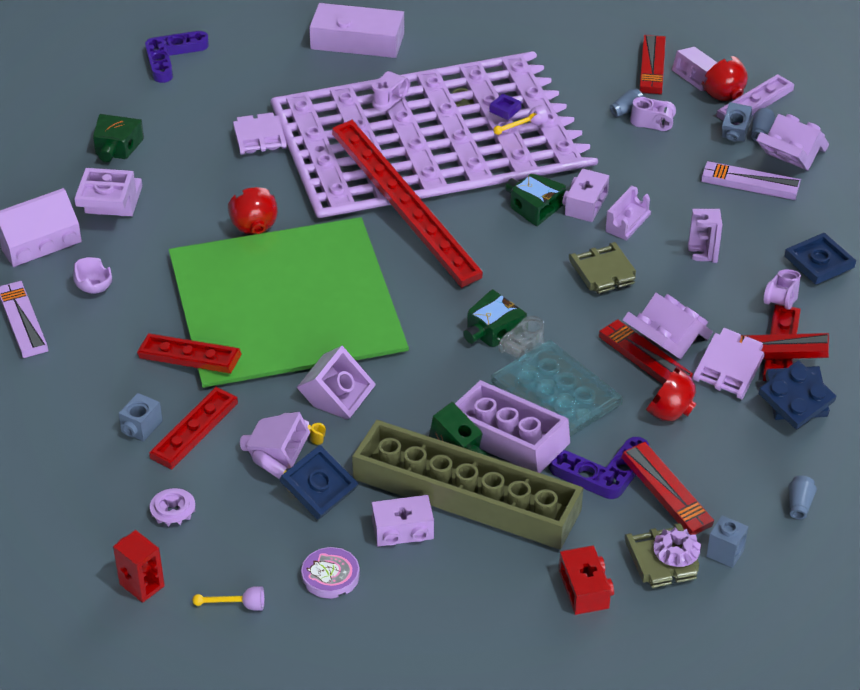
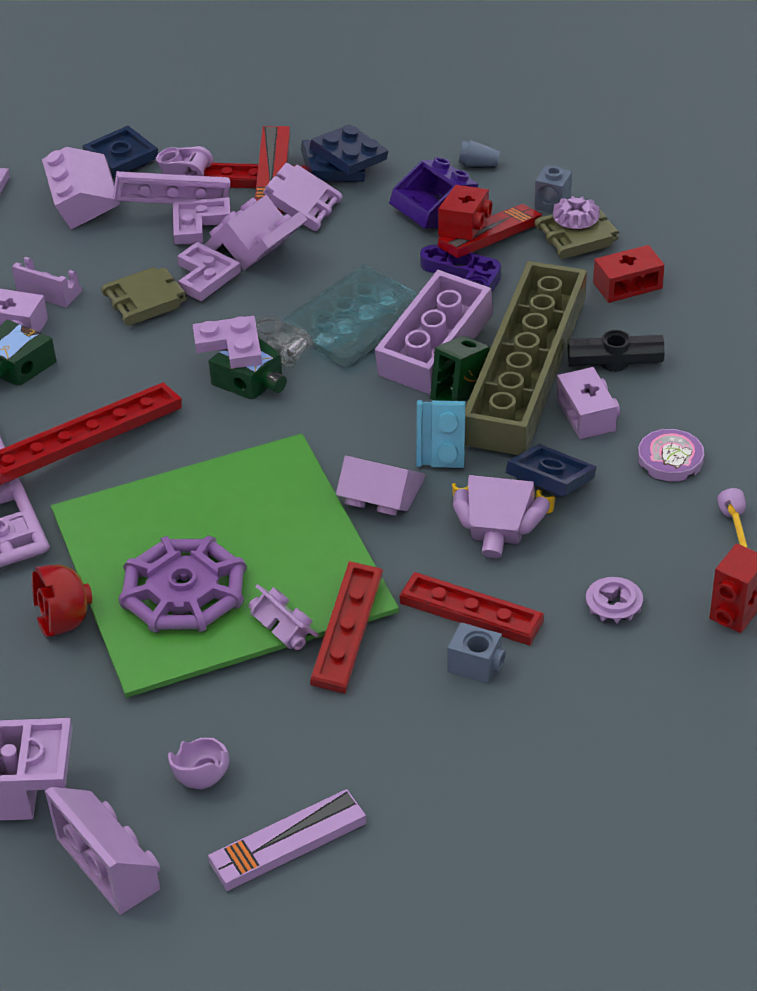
camera: 95 degrees left, 0 degrees up
(203, 317) = (292, 625): none -> lavender hinge
(267, 267) = (165, 566): none -> medium lavender plate
(368, 413) = (441, 434): none -> medium azure plate
(469, 551) = (615, 350): none -> black piece
(513, 302) = (235, 334): none -> lavender plate
(621, 302) = (208, 270): none -> lavender plate
(640, 351) = (284, 261): red tile -> none
(671, 456) = (464, 212): none -> red brick
(674, 397) = (359, 229): red cylinder -> none
(705, 234) = (101, 210): lavender hinge -> none
(713, 297) = (193, 214): none -> lavender plate
(725, 455) = (415, 190): none -> dark purple piece
(738, 278) = (168, 187): none -> lavender tile
(758, 225) = (79, 184): none -> lavender slope

